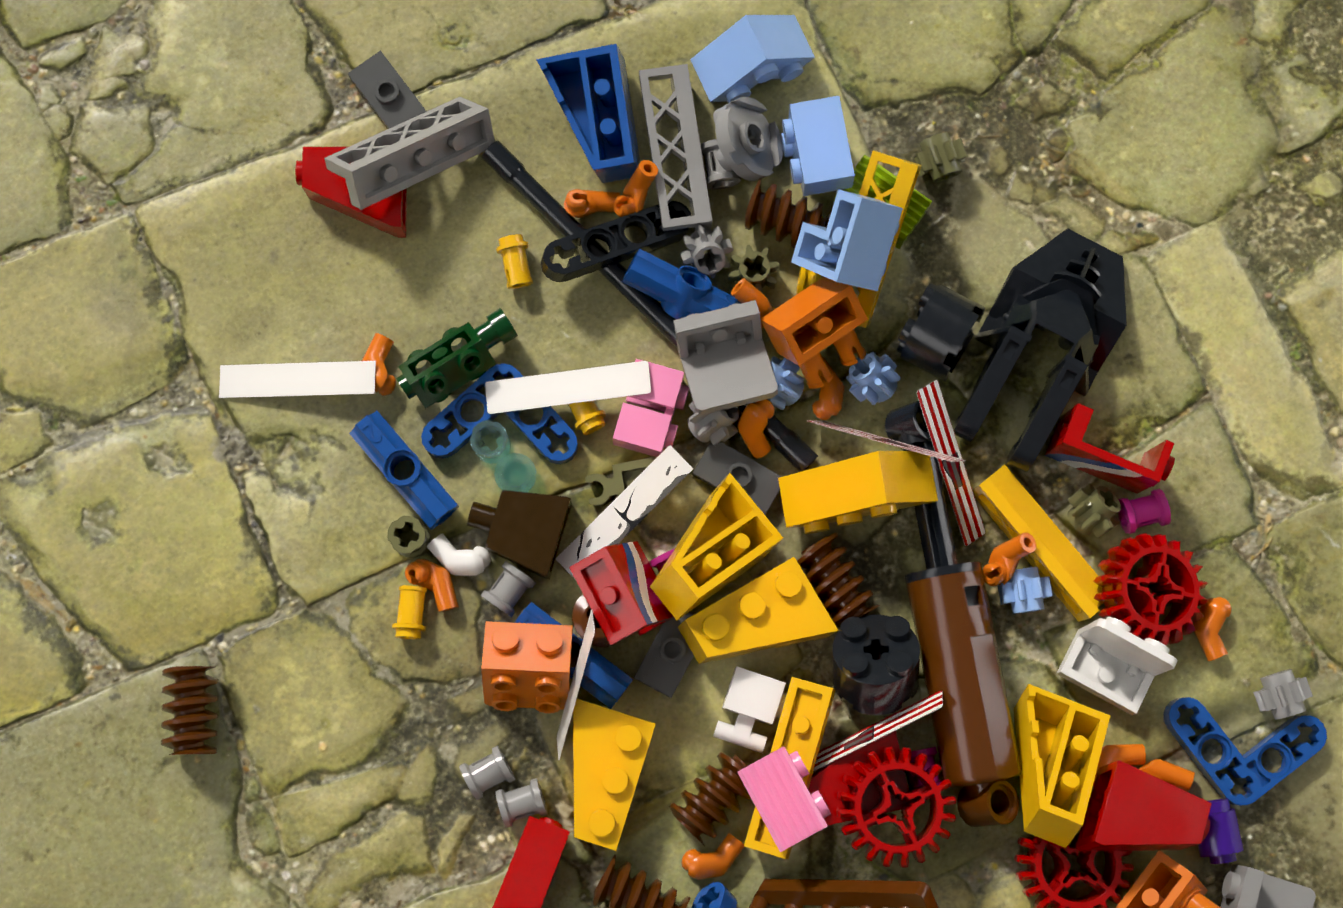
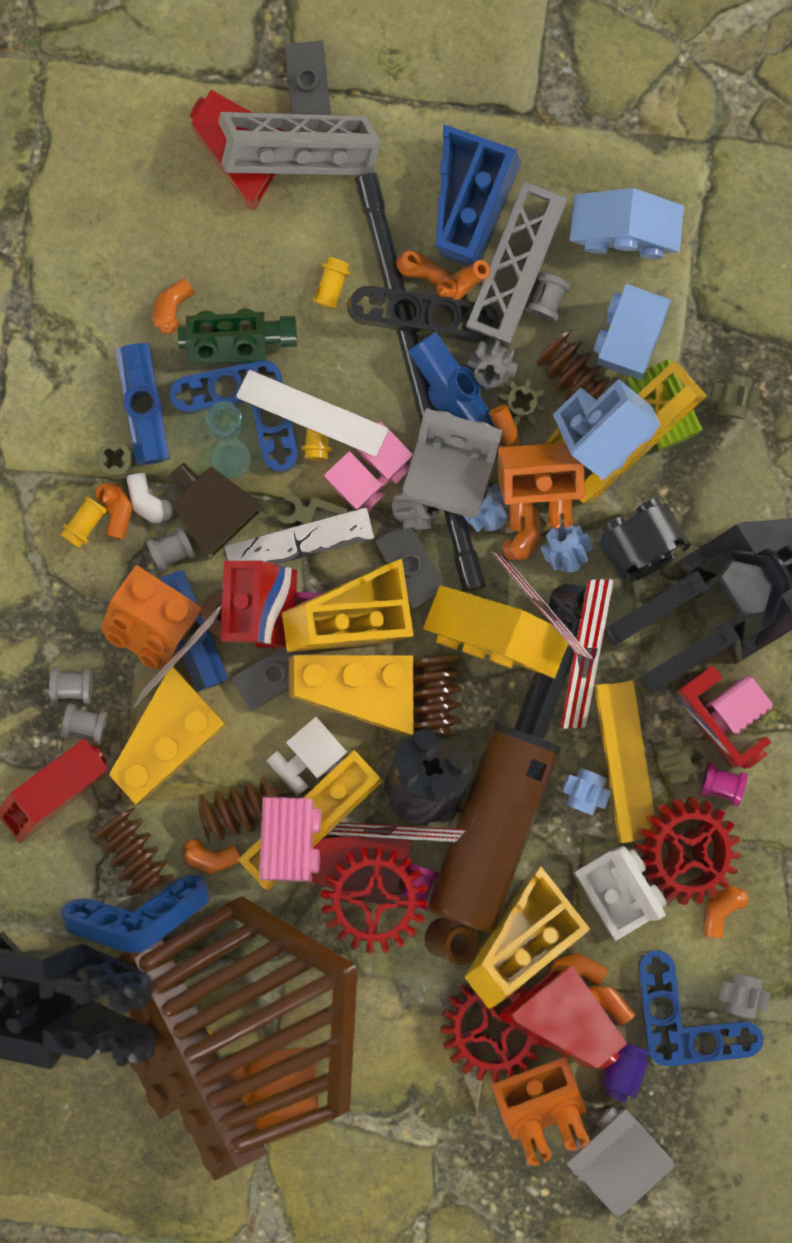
camera: 40 degrees right, 5 degrees up
(297, 379) = (99, 280): white sticker -> none
(735, 128) = (564, 290): light grey plate -> none
(753, 423) = (443, 531): orange arm -> none
(1006, 558) = (582, 757): orange arm -> none
(1120, 426) = (739, 706): none -> bright pink brick

